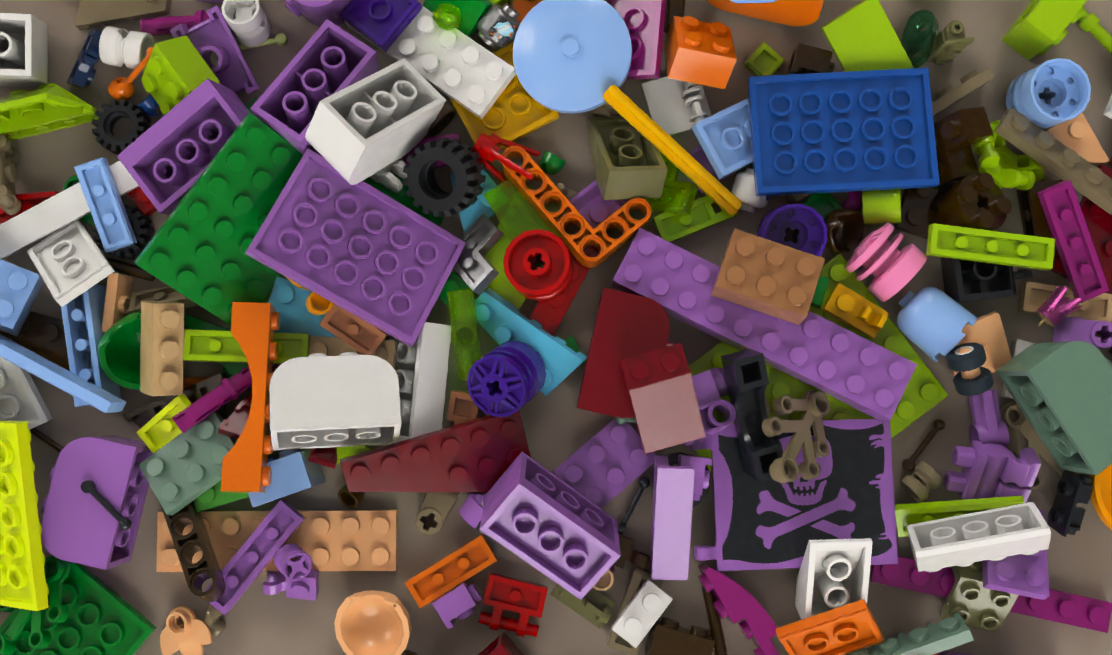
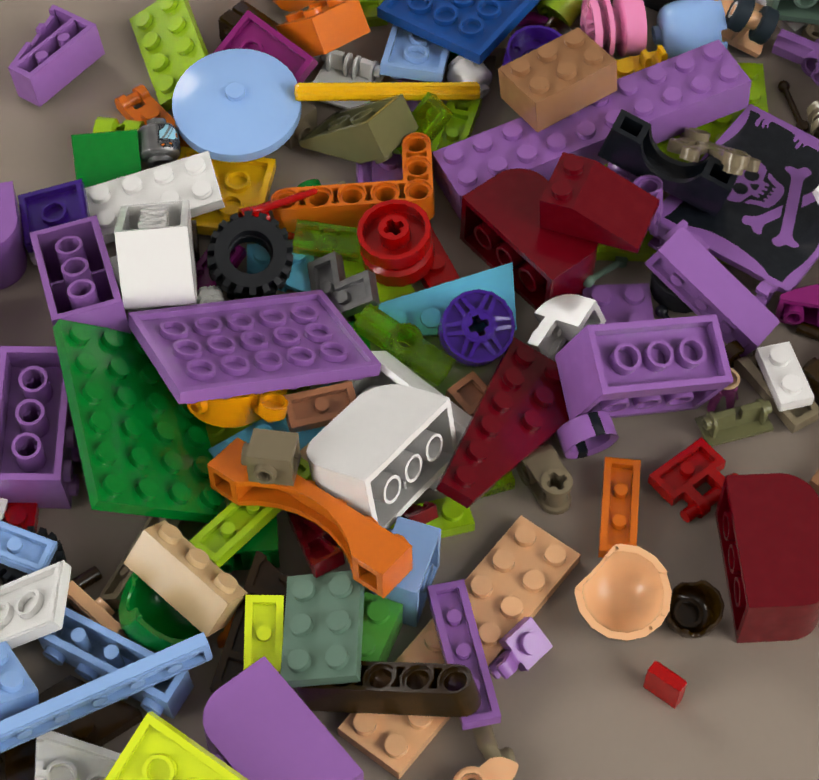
camera: 55 degrees left, 30 degrees down
(89, 487) = (265, 724): black hinge -> none
(214, 400) = (280, 550): magenta pin -> none
(255, 347) = (272, 457): none -> dark tan brick
(293, 569) = (499, 615): medium lavender wheel -> none
(350, 499) = (480, 542): dark brown hinge -> none
(447, 16) = (113, 168): clear neon green plate -> none
(457, 603) = (656, 522): medium lavender brick -> none
(570, 426) = (562, 320): none -> white brick

